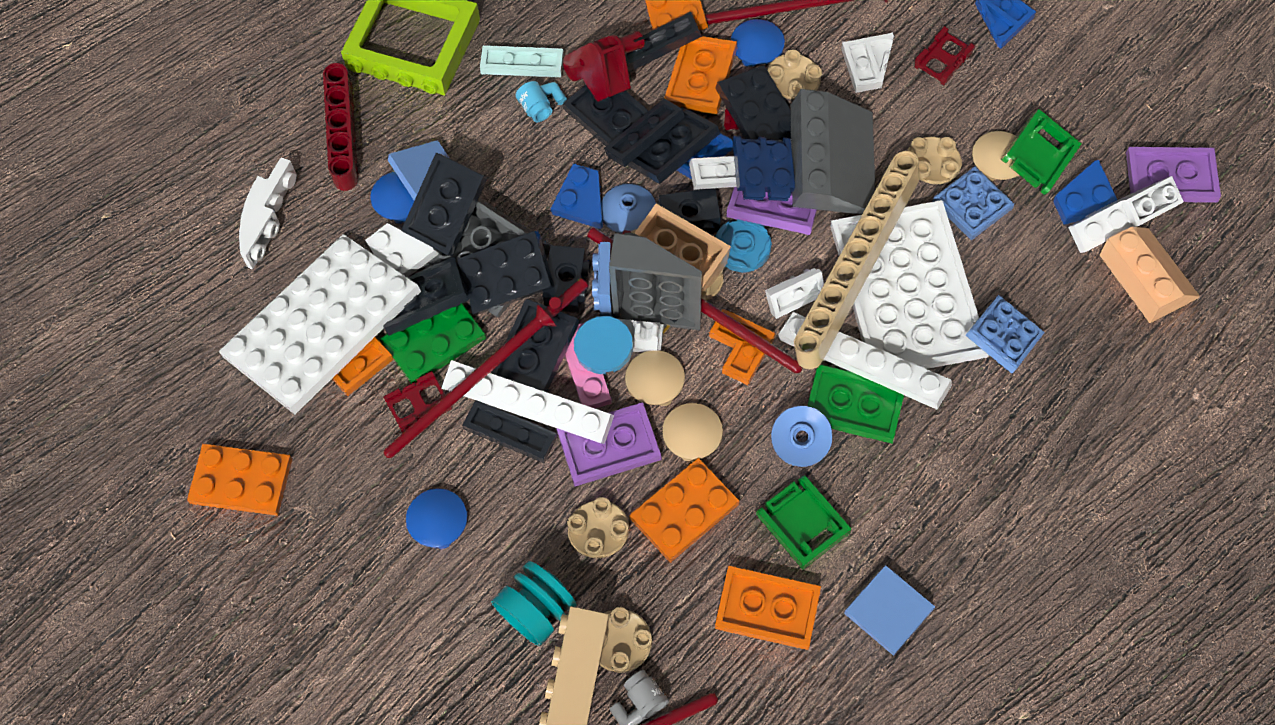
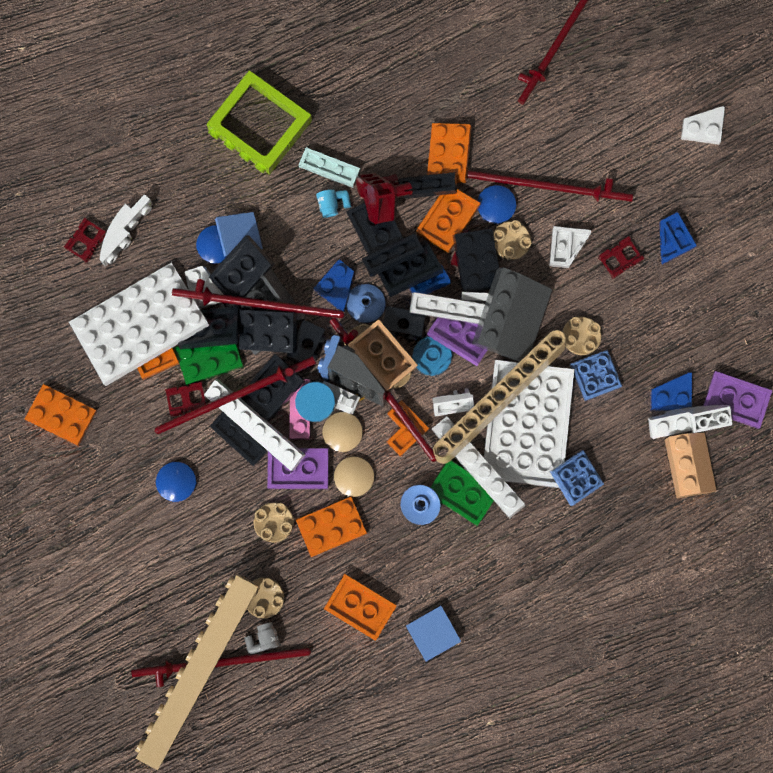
camera: 15 degrees right, 15 degrees up
(224, 245) = (90, 243): none -> dark red piece
(343, 136) = (193, 188): dark red beam -> none
(408, 251) = (207, 296): none -> dark red piece
(539, 597) = (217, 560): teal wheel -> none
(764, 168) = (461, 312): dark blue plate -> none
(800, 518) = (402, 556): green container -> none
(989, 151) = (628, 346): tan dish -> none
(1037, 158) = (650, 357): green container -> none

